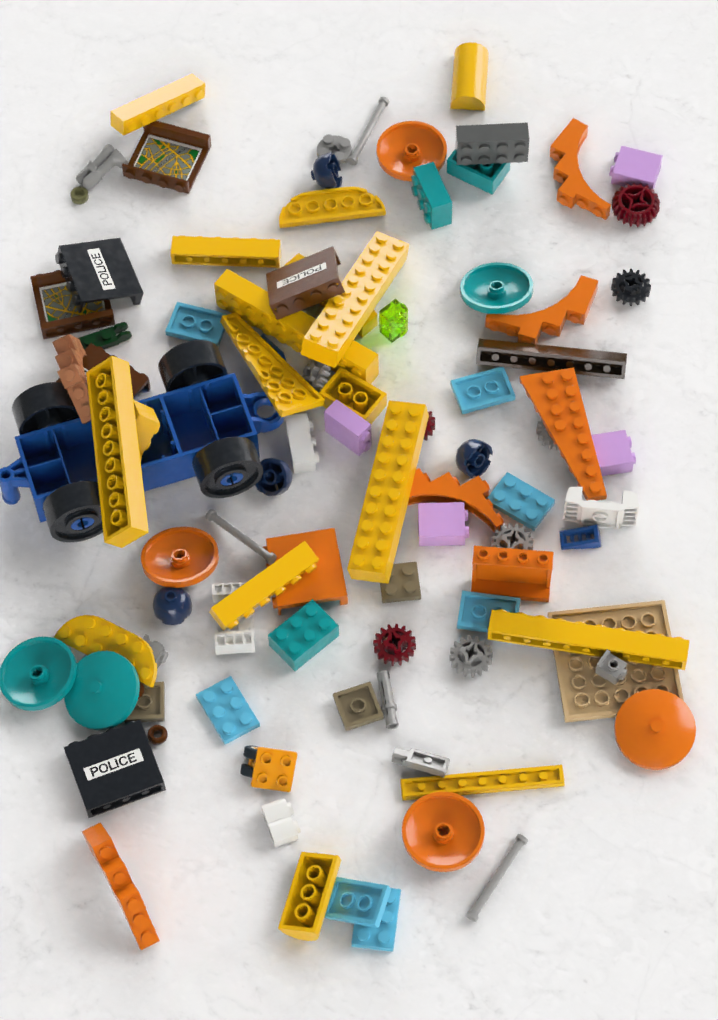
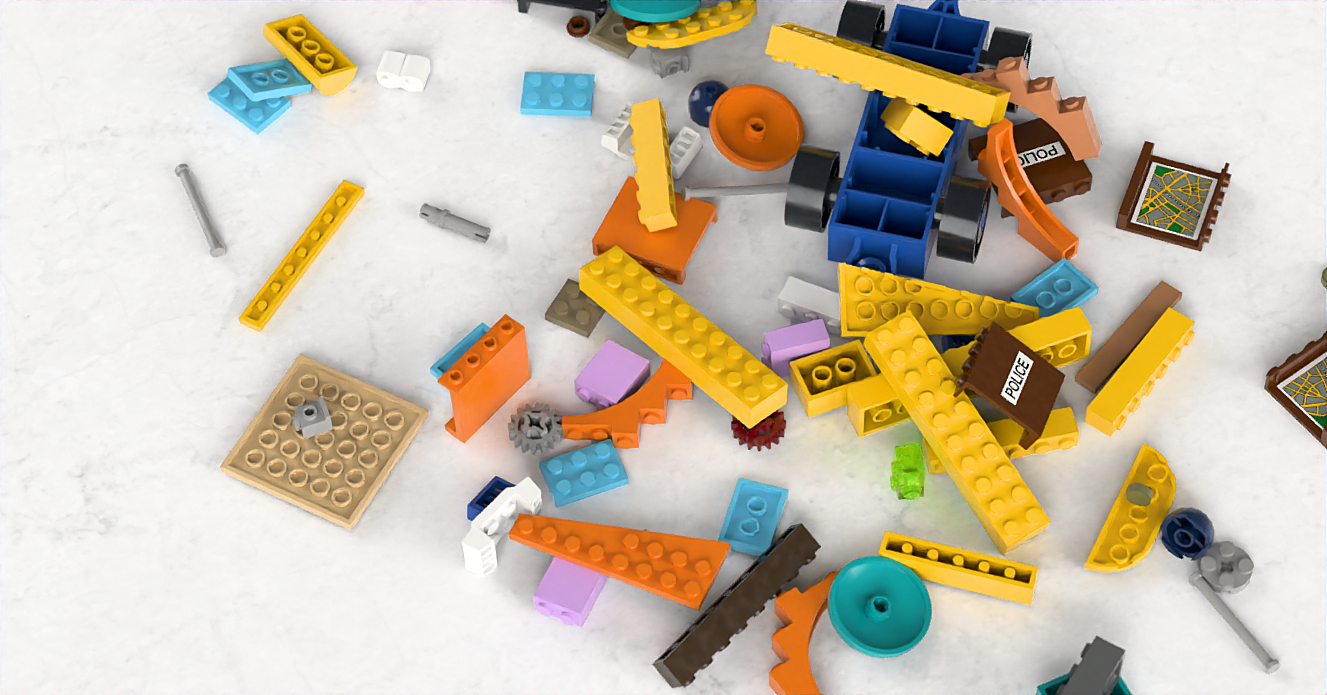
camera: 125 degrees right, 5 degrees down
(98, 272) = (1185, 226): black panel -> none
(107, 337) = (1100, 202): dark green hinge -> none
(145, 360) = (1016, 194): none -> orange arch
(193, 272) = (1127, 337): none -> medium nougat tile
(269, 767) = (467, 80): light orange plate -> none
(275, 477) = (788, 255): dark blue cylinder -> none
(303, 635) = (581, 187): teal brick -> none
(322, 200) = (1139, 494): none -> olive tile
(358, 706) = (469, 194): dark tan plate -> none
(387, 649) = (507, 259): dark red gear -> none
(409, 146) = (1163, 638): orange dish -> none
(421, 761) = (363, 213): light grey hinge -> none
(431, 195) = (1066, 615): teal brick -> none
(439, 265) = (962, 567): none -> yellow brick
(443, 831) = (276, 184): orange dish -> none
(473, 457) = (670, 448): dark blue cylinder -> none
(477, 662) = (438, 316): light grey gear -> none
(588, 639) = (359, 417): yellow brick -> none
(654, 729) = (220, 424): orange dish -> none

